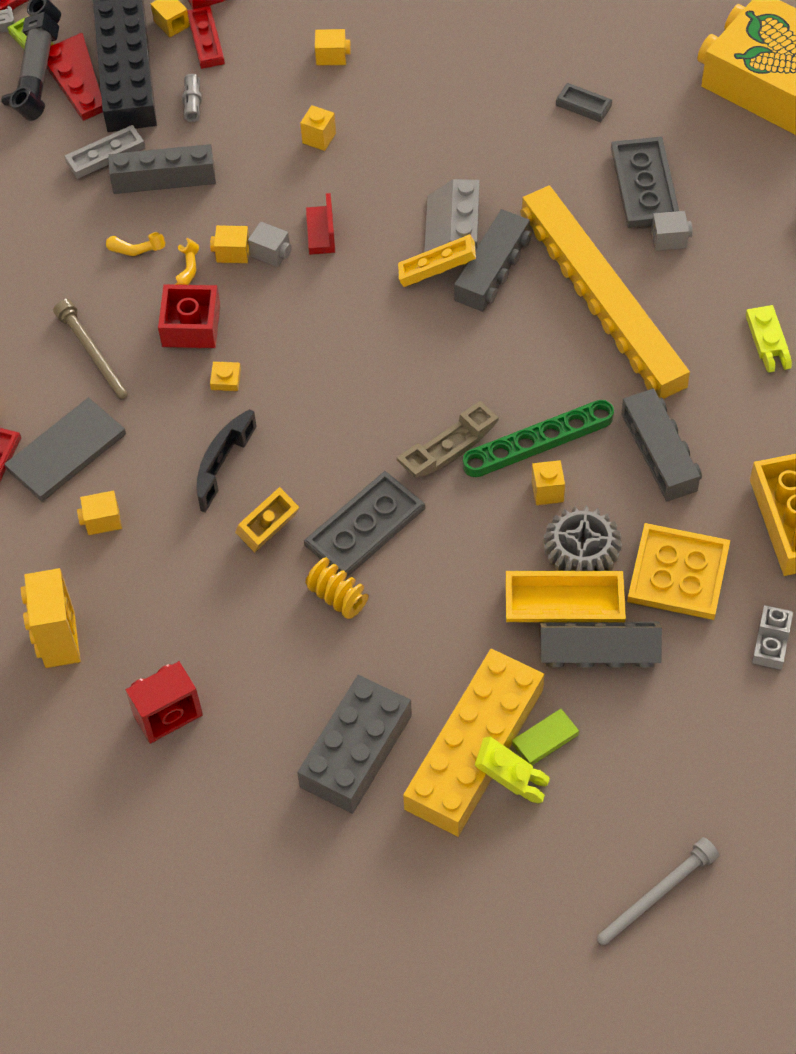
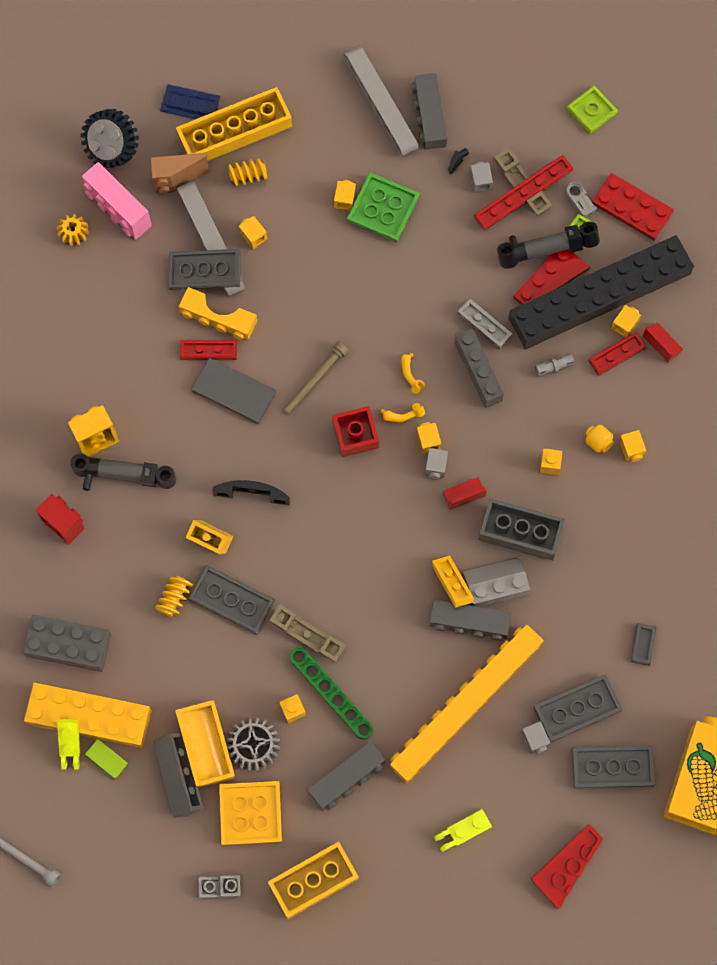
camera: 70 degrees right, 15 degrees up
(99, 513) = (188, 430): yellow brick -> none
(141, 581) = (145, 473): none -> piece
(225, 376) = (321, 471): yellow plate -> none
(308, 74) = (599, 438): none -> yellow head
(394, 175) = (521, 529): none -> dark grey brick
(730, 166) = (613, 767): none -> dark grey plate

